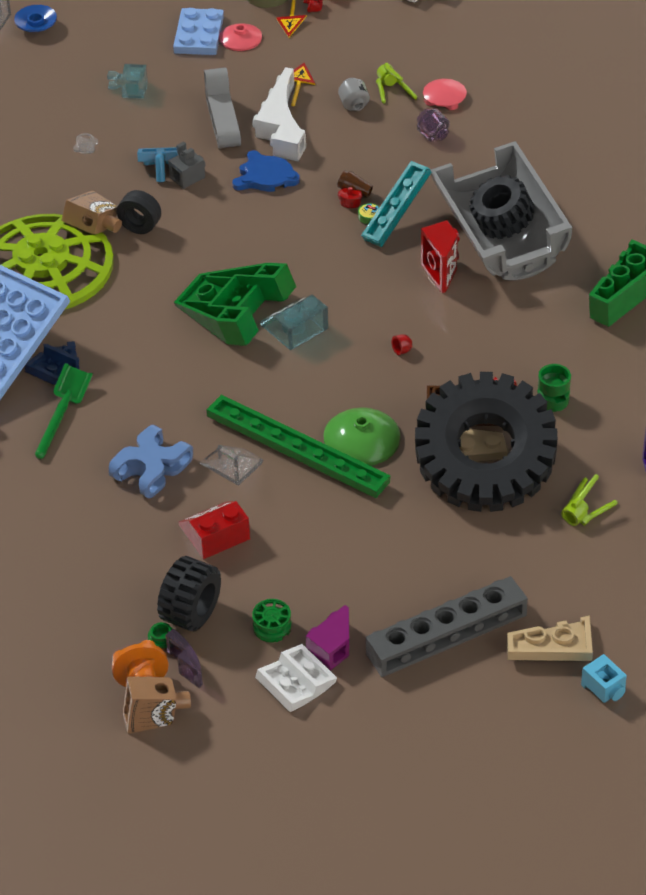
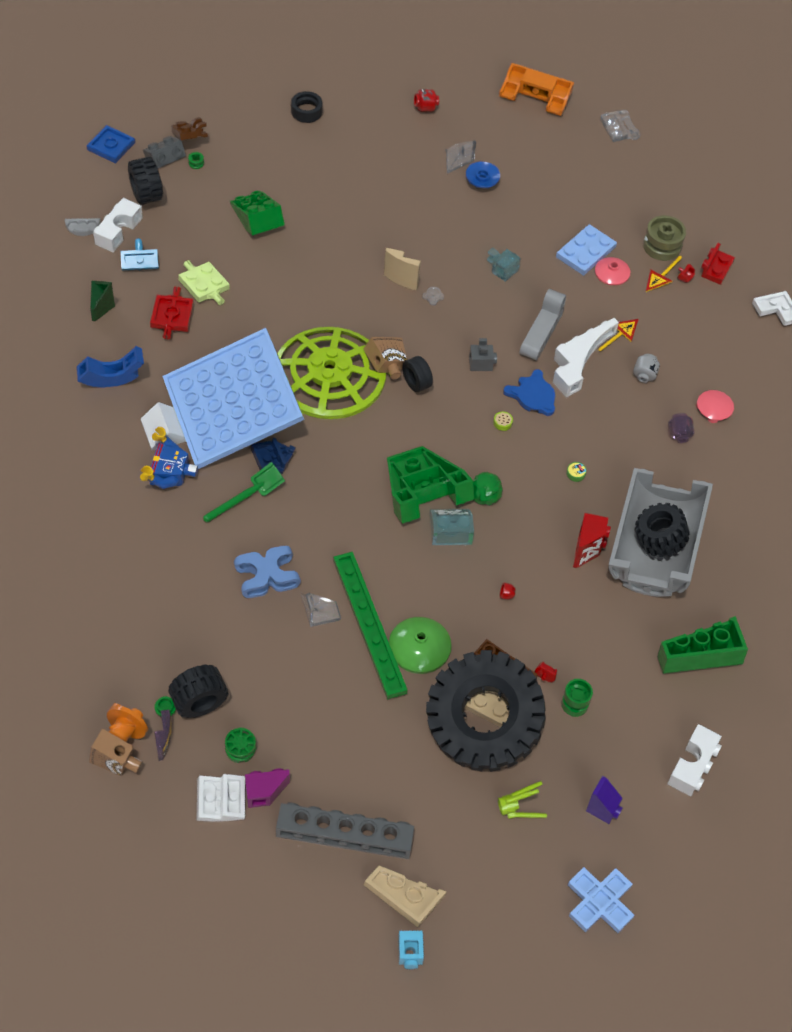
camera: 30 degrees right, 10 degrees up
(34, 133) = (401, 269): none -> tan slope
(157, 156) = (470, 334): dark azure plate -> none
(217, 528) = (264, 650): red slope -> none
(258, 210) = (503, 421): none -> tile
(303, 270) = (487, 488): none -> green hair
(350, 179) = (584, 441): reddish brown cone -> none
(350, 198) = (573, 450): red piece -> none
(388, 77) = (684, 368): lime plant -> none
(396, 203) = (594, 478): teal tile -> none

